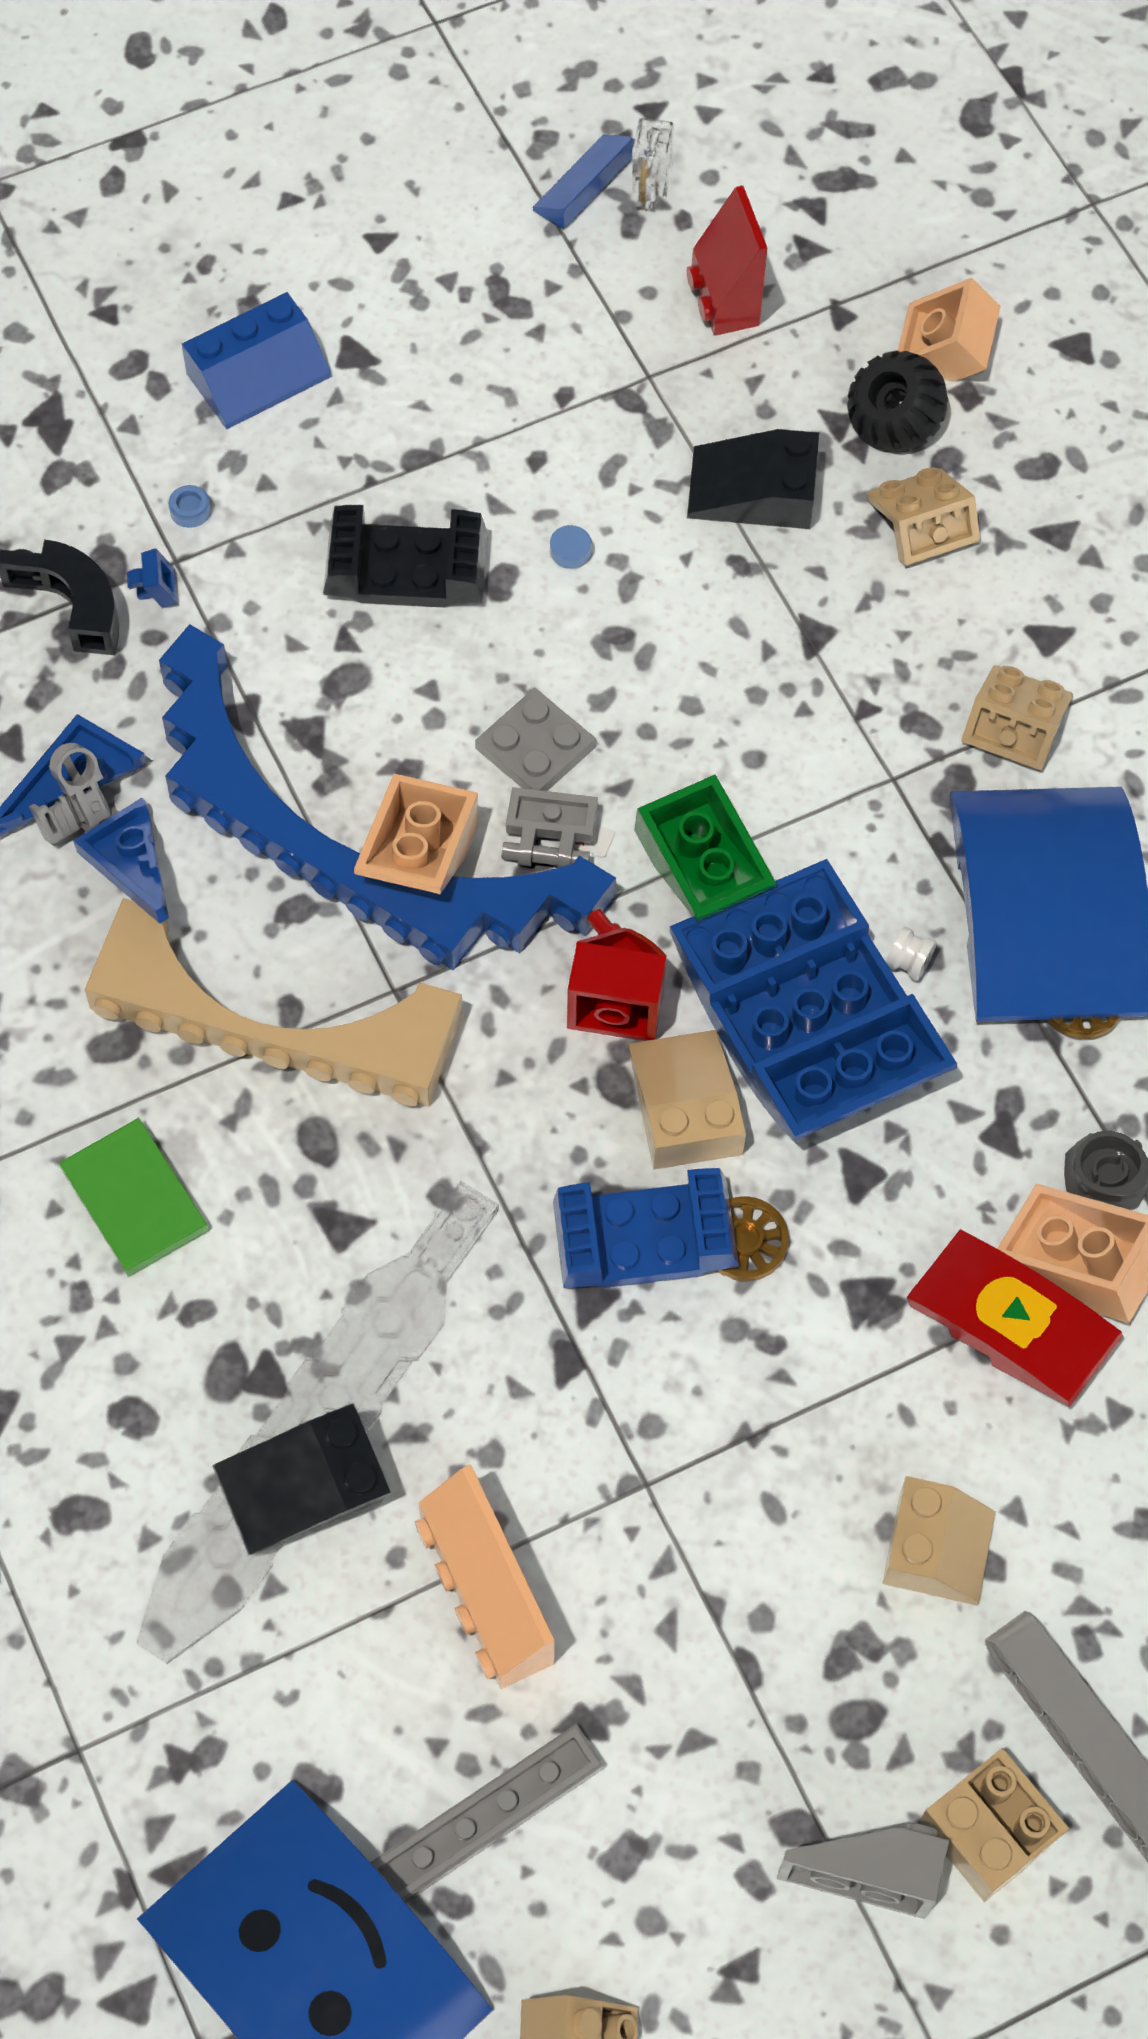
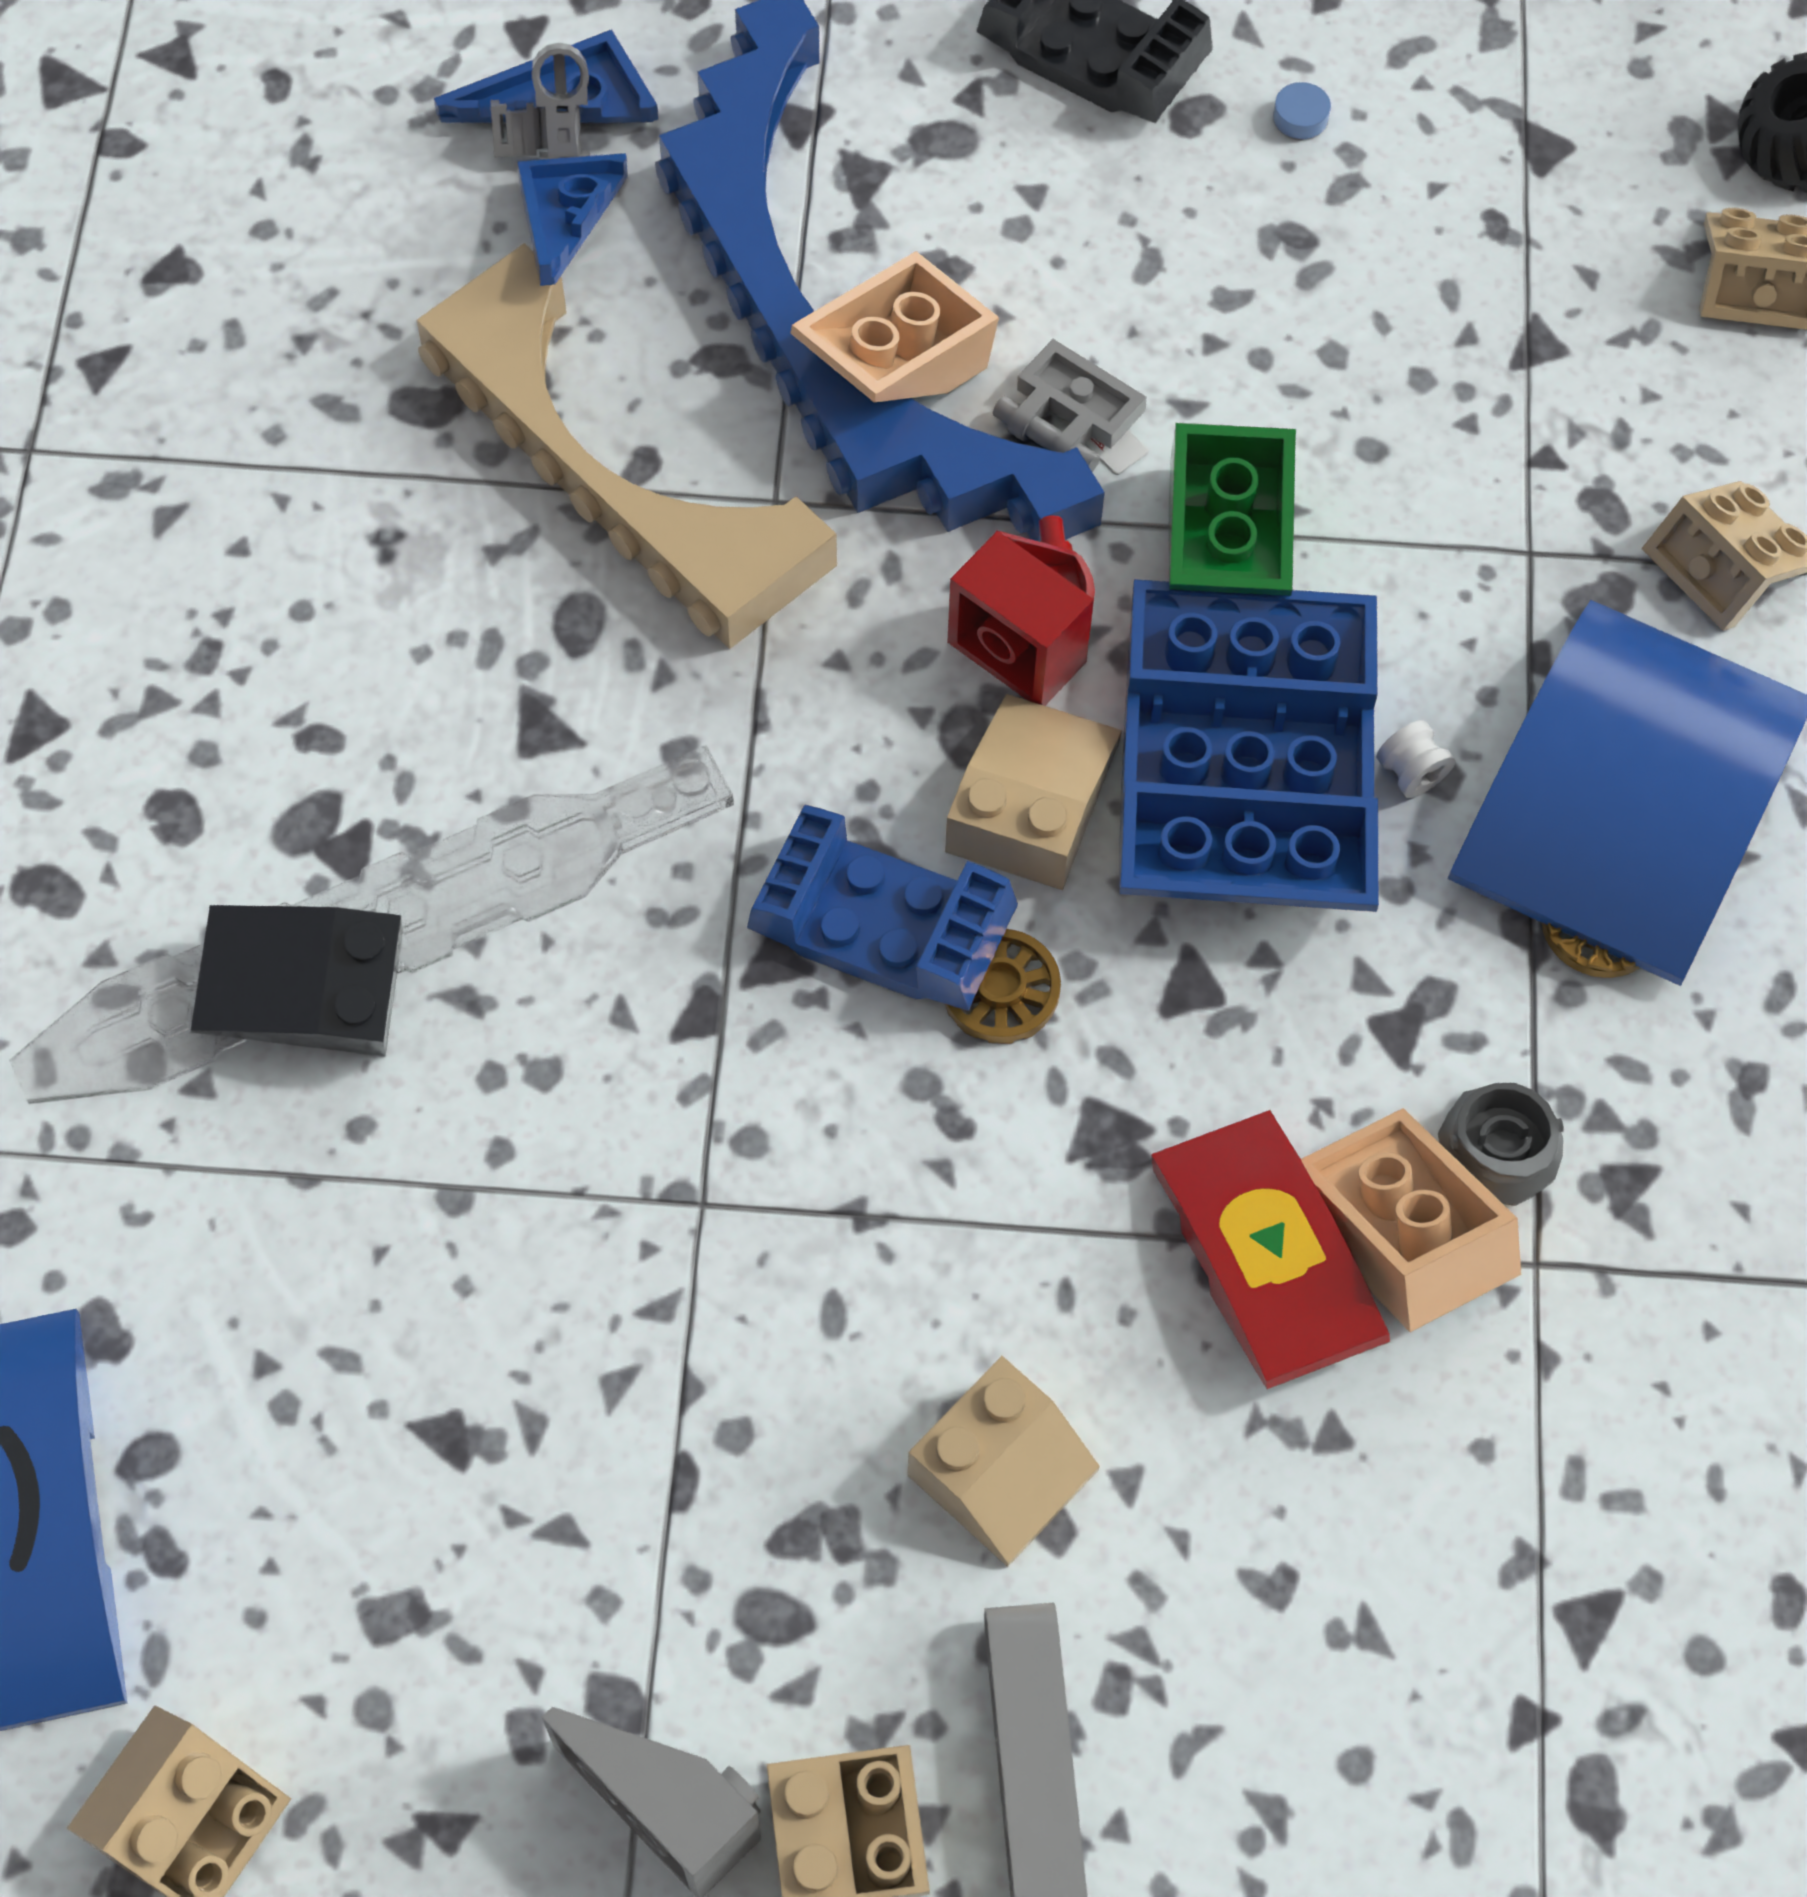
camera: 30 degrees right, 0 degrees up
(133, 1197) = (331, 577): bright green tile -> none
(486, 1580) = (432, 1204): light nougat slope -> none
(488, 1814) = (266, 1475): light grey tile -> none
(535, 742) = (1118, 307): light grey plate -> none
(756, 479) = (1578, 135): black slope -> none

